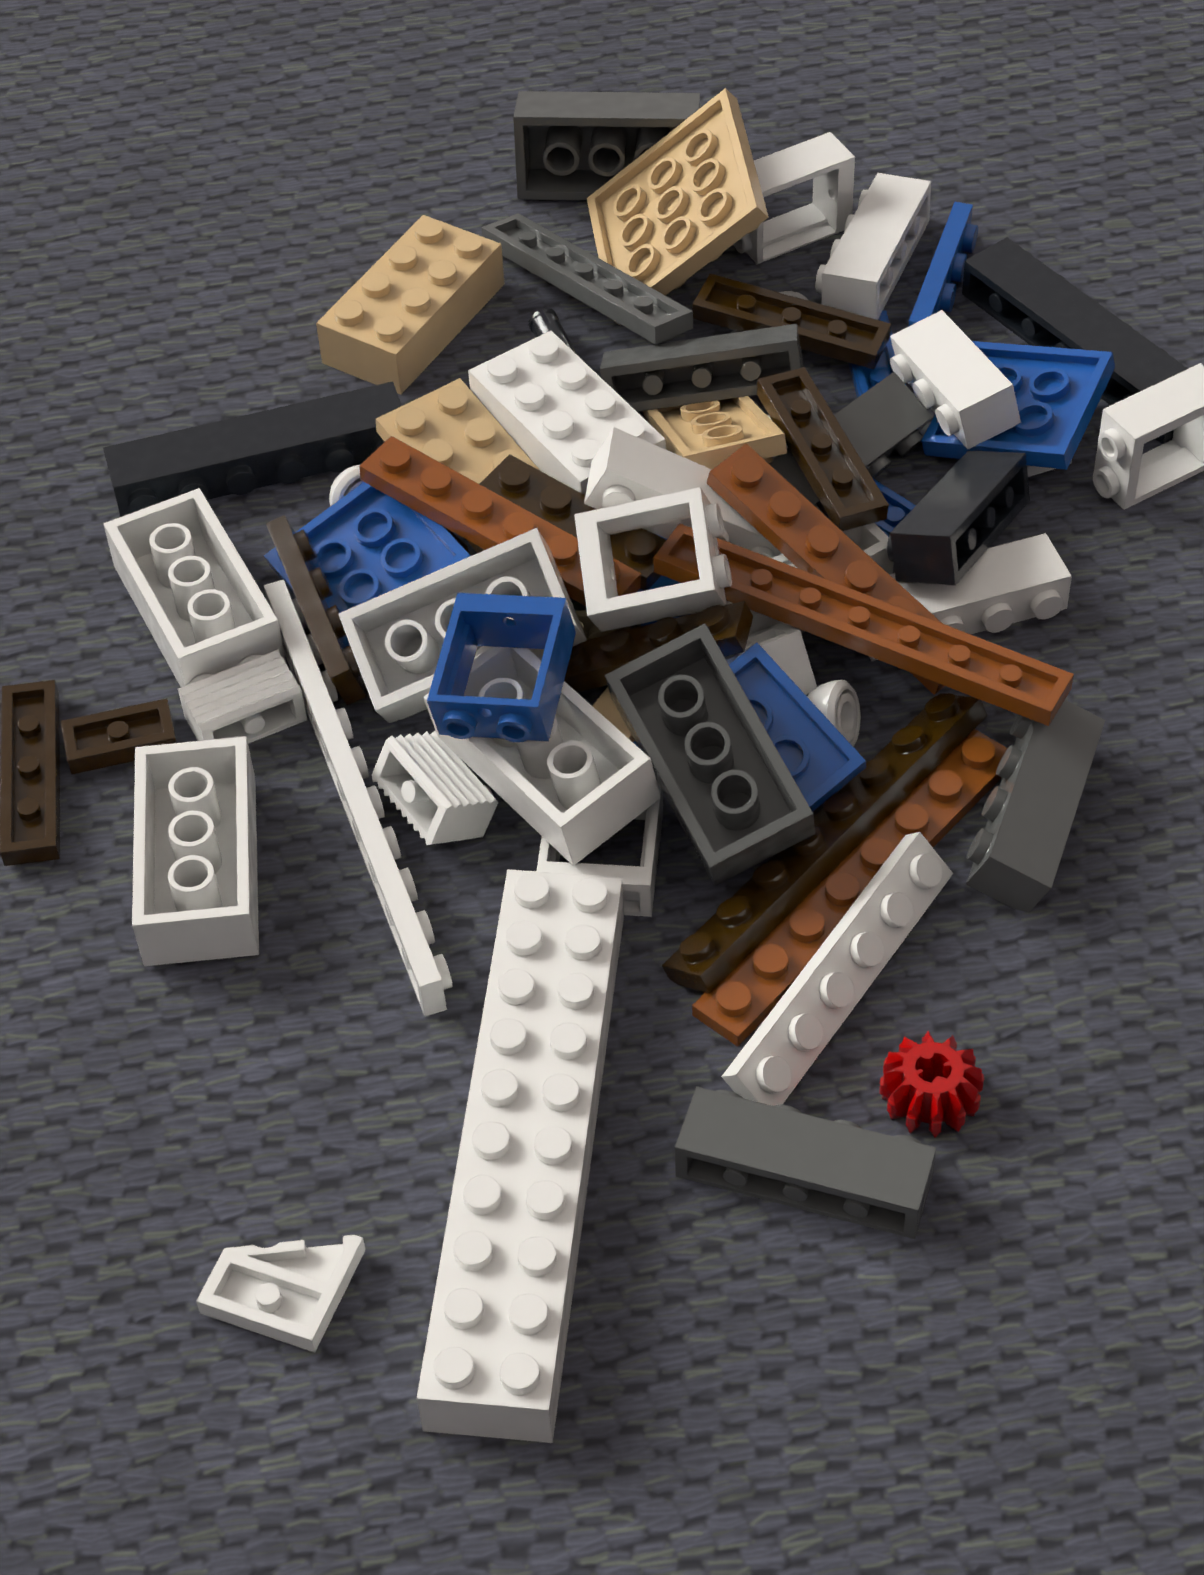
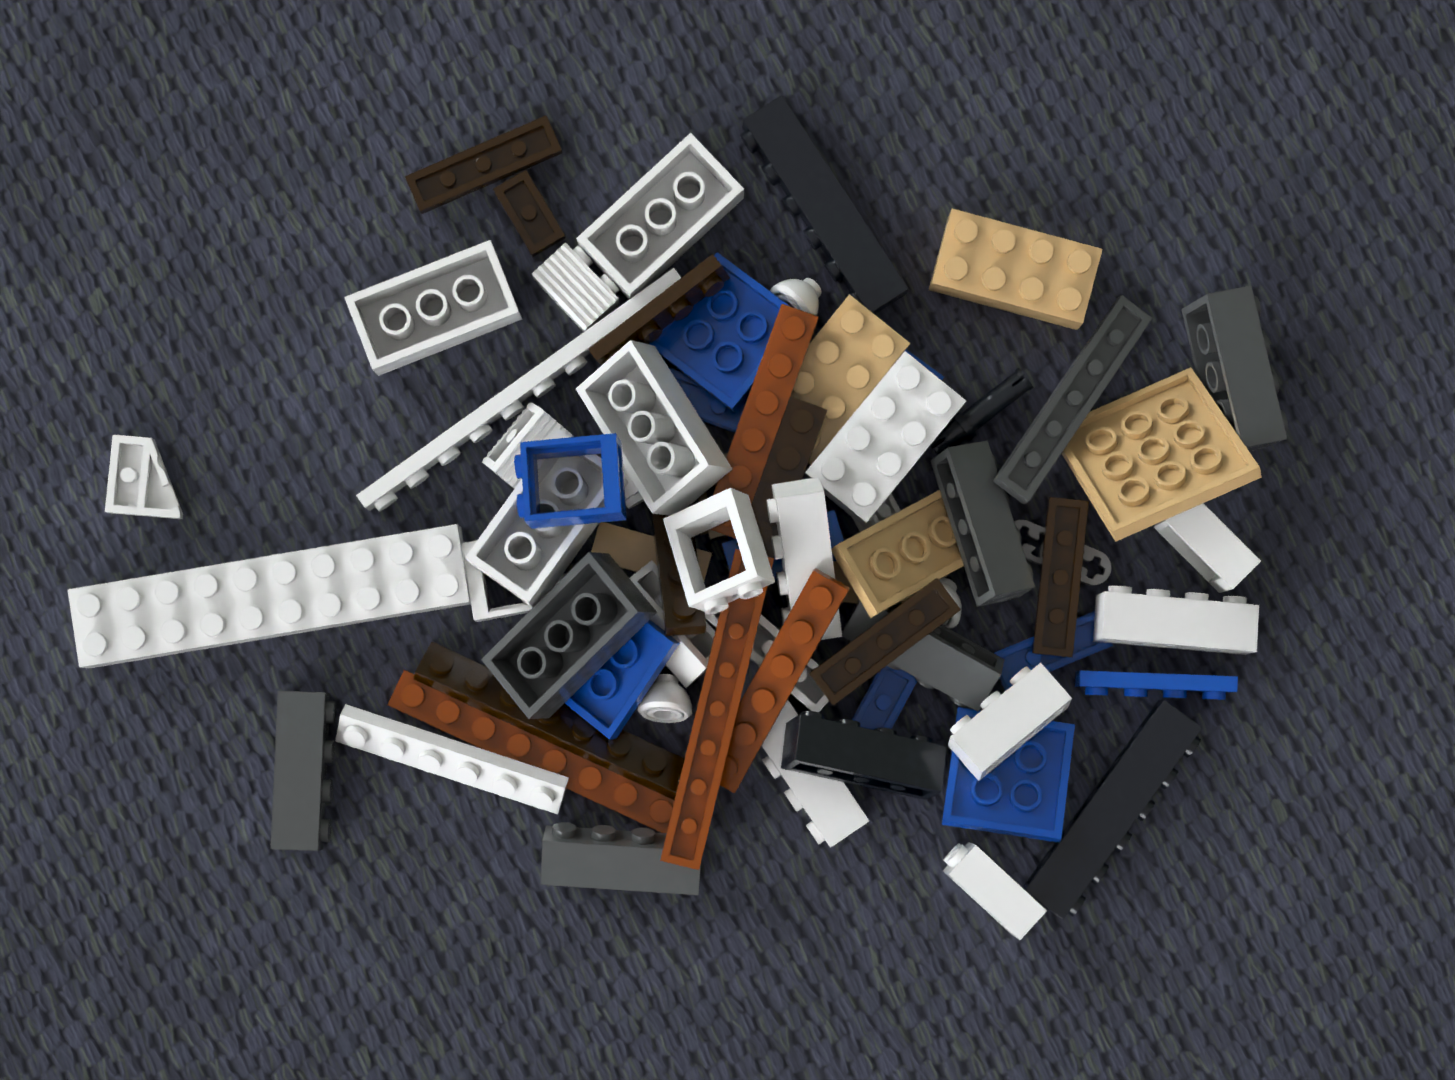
camera: 70 degrees right, 35 degrees up
(931, 1084) = (367, 843): red gear -> none

